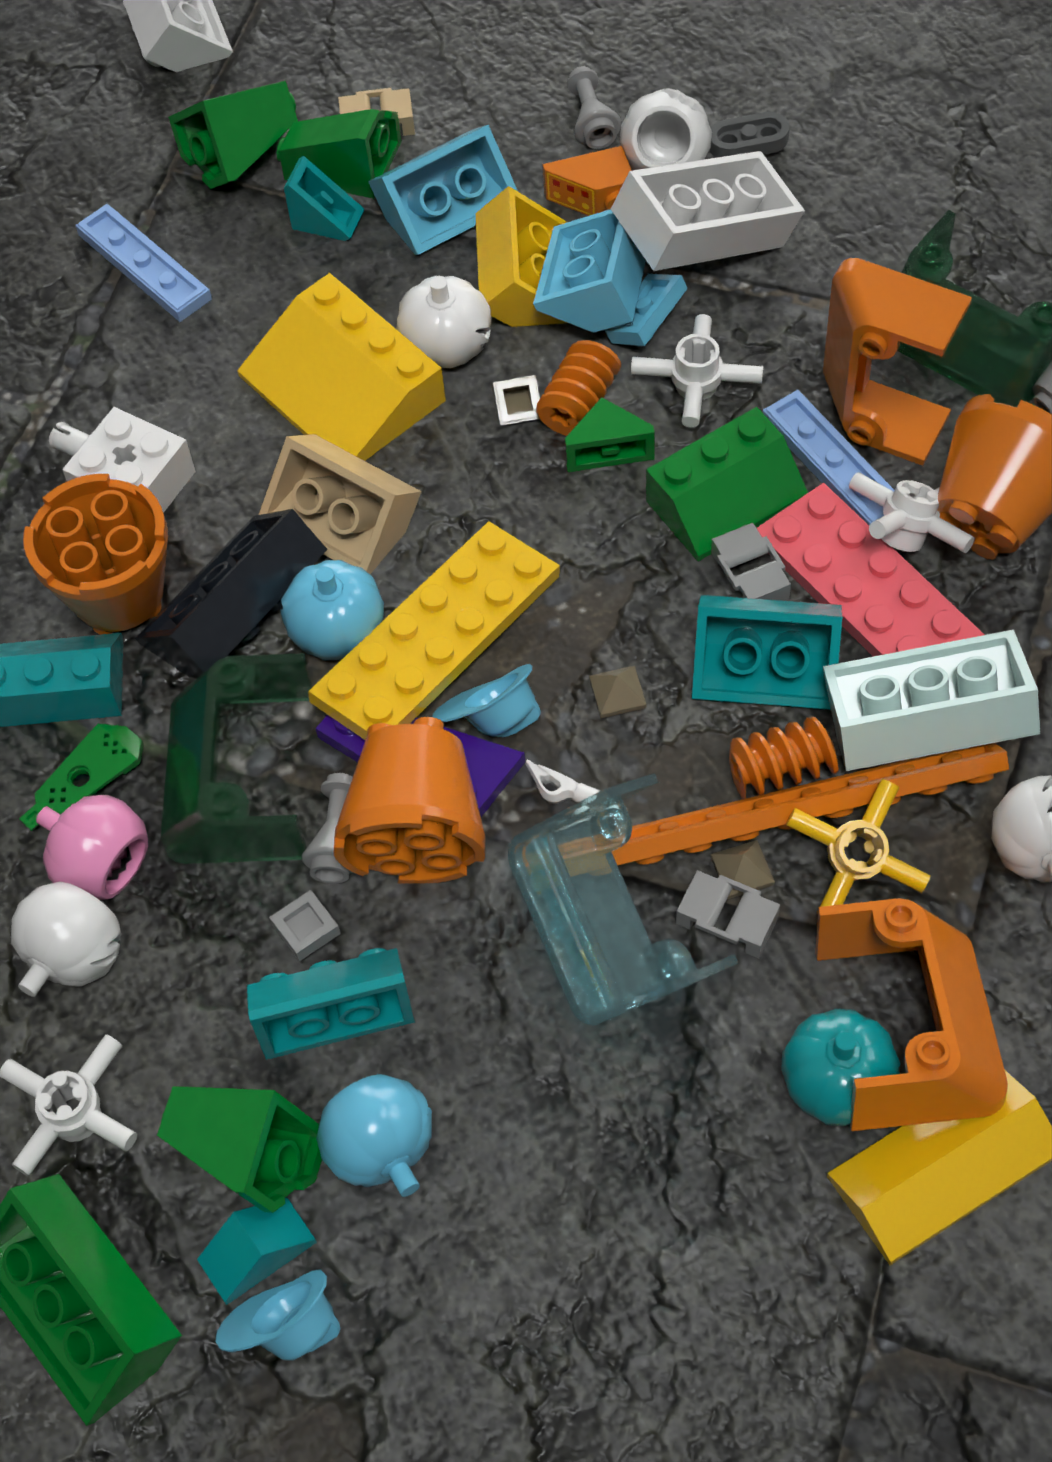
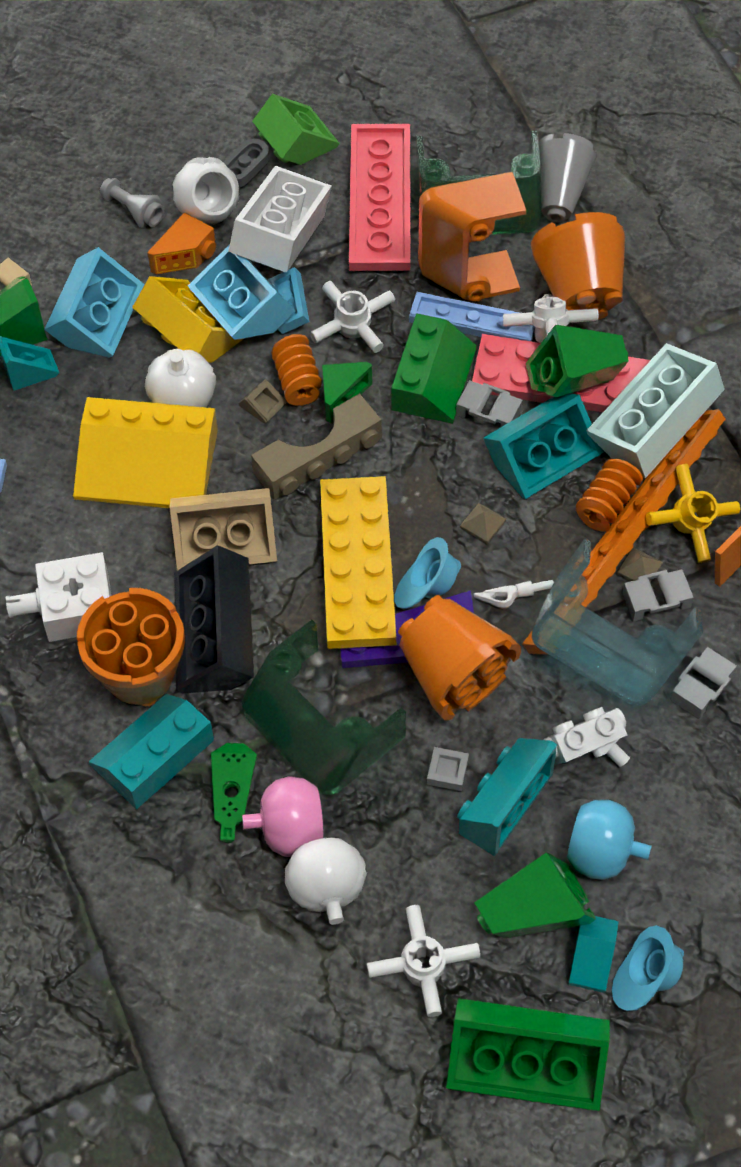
camera: 45 degrees left, 0 degrees up
(319, 854) = (421, 719): light grey piece -> none
(331, 608) = (287, 589): medium azure piece -> none
(490, 1012) = (595, 734): none -> white brick
(567, 492) = (288, 466): none -> dark tan arch
(654, 1057) = (693, 694): none -> light grey piece
(836, 131) = (293, 130): none -> bright green slope
(877, 231) = (379, 198): none -> coral plate
(885, 579) = (575, 360): none -> green slope

